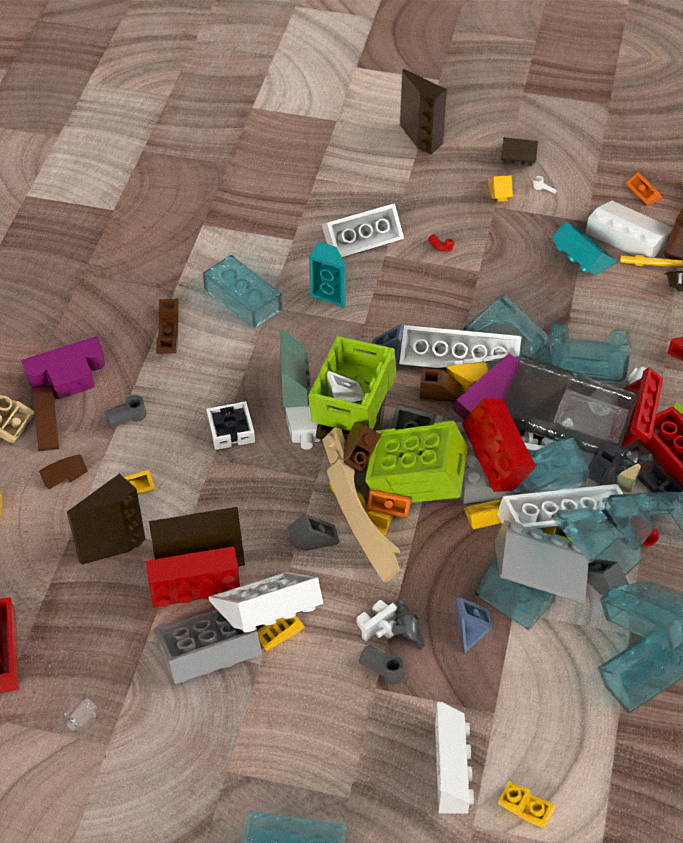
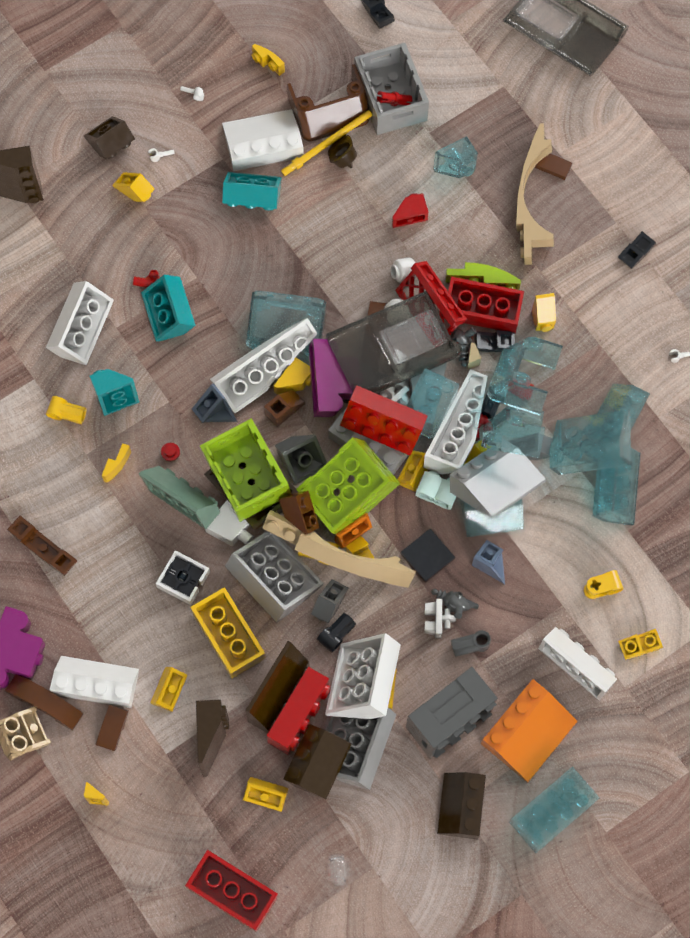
camera: 50 degrees left, 20 degrees up
(90, 433) = (94, 681): none -> white slope
(103, 614) = (265, 794): none -> yellow slope
(132, 409) = (98, 644): dark grey piece -> none
(161, 622) = (317, 761): none -> dark brown slope
(214, 478) = (228, 632): none -> yellow brick
(229, 771) = (461, 805): none -> dark brown slope
(242, 291) = (57, 462): clear light blue brick -> none
(272, 323) = (113, 467): none -> yellow slope
(284, 558) = (333, 636): none -> black piece
(286, 267) = (61, 409): none -> yellow piece
(294, 480) = (273, 575): none -> light grey slope
(298, 685) = (451, 713): none -> dark grey container
(322, 349) = (170, 451): none -> red plate
(343, 388) = (245, 480): white slope -> none
(350, 771) = (529, 731): none -> orange slope
(426, 575) = (427, 555): none -> black tile
(434, 268) = (168, 308): none -> teal slope
(483, 533) = (435, 490): none -> light aqua brick
(547, 728) = (606, 584): none -> yellow piece
(589, 358) = (351, 281): clear light blue windscreen -> none
(603, 461) = (454, 363): black slope -> none
(613, 173) = (198, 92): none -> white hand
(643, 189) = (232, 91): orange slope -> none

